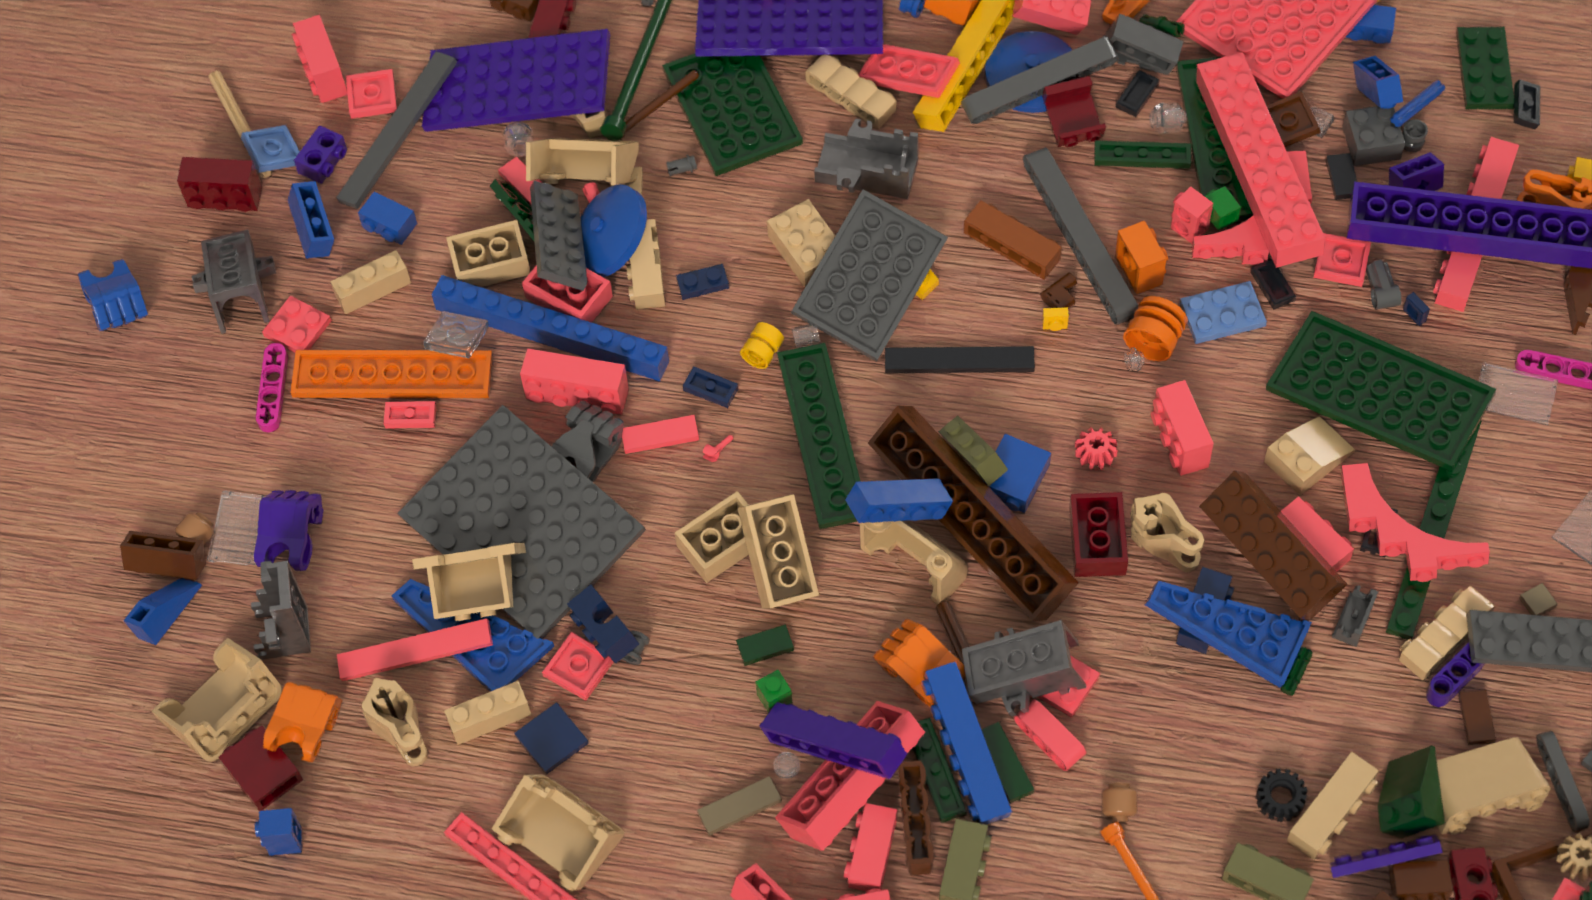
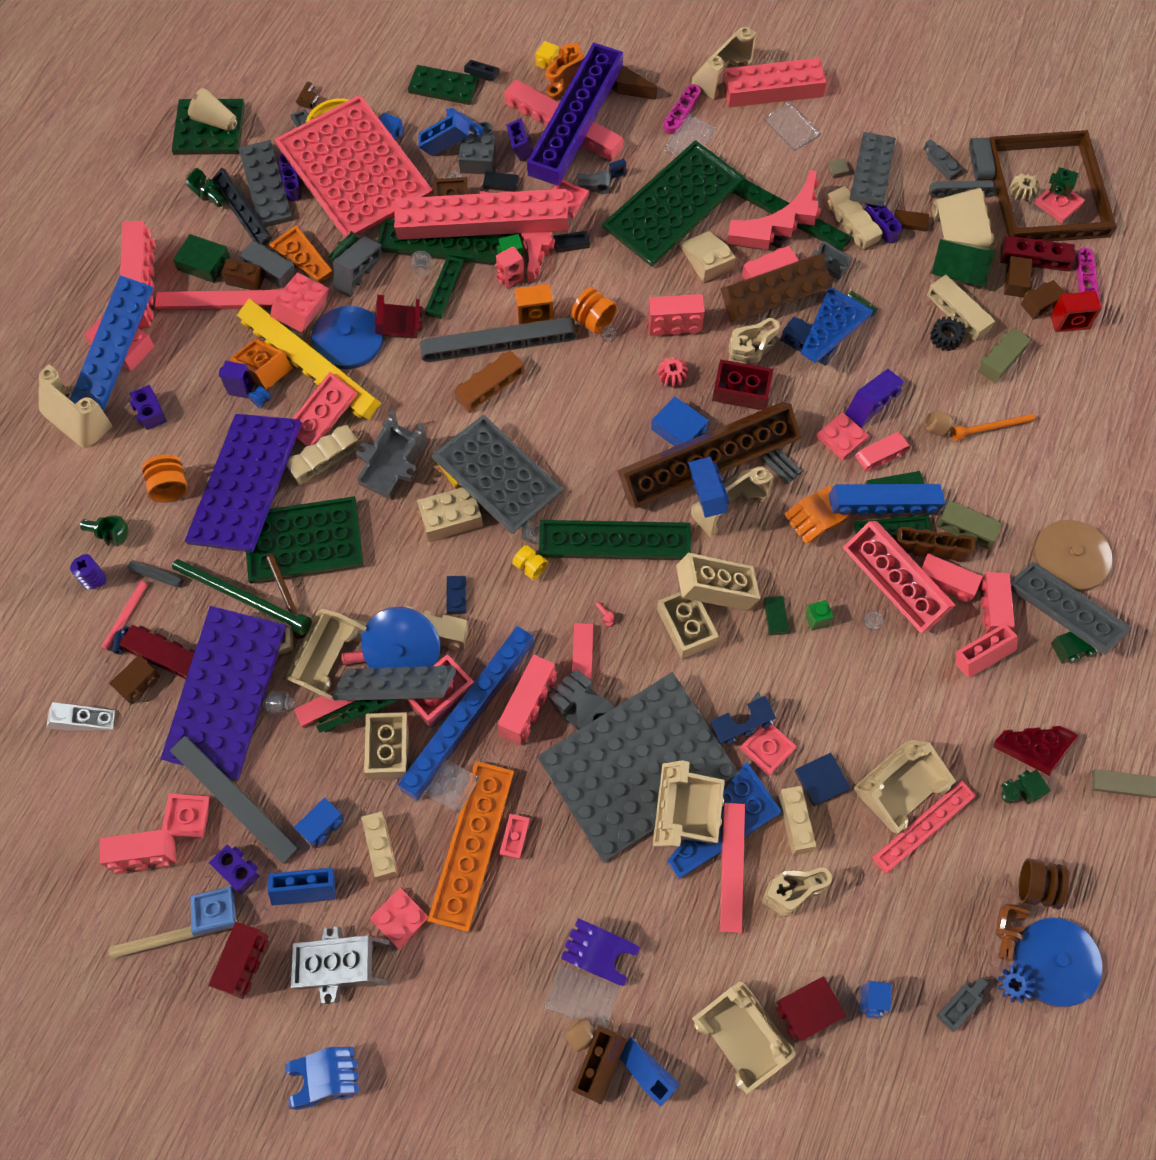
camera: 80 degrees left, 5 degrees up
(272, 387) = (455, 945): dark pink beam -> none
(282, 599) = (694, 954): flat silver piece -> none
(302, 718) = (781, 962): orange piece -> none
(681, 165) = (346, 587): dark grey pin -> none
(710, 387) = (553, 607): dark blue plate -> none
(739, 805) = (899, 659): dark tan tile -> none
(834, 740) = (879, 576): dark purple brick -> none
(952, 628) = (794, 491): reddish brown axle -> none
(959, 359) = (576, 439): black tile -> none
(973, 450) = (663, 439): olive brick -> none
(983, 608) = (783, 462): none -> dark grey tile
(1022, 666) = (838, 448): flat silver piece -> none
(1031, 83) = (366, 328): dark grey beam -> none
(1055, 318) = (563, 371): yellow plate -> none
(1057, 294) = (542, 367): reddish brown piece -> none
(1135, 708) = (874, 397): none -> dark purple wedge
(1137, 93) = (390, 278): black tile -> none
(1223, 312) = (584, 272): medium blue plate -> none
(1390, 855) = (1002, 286): dark purple wing -> none

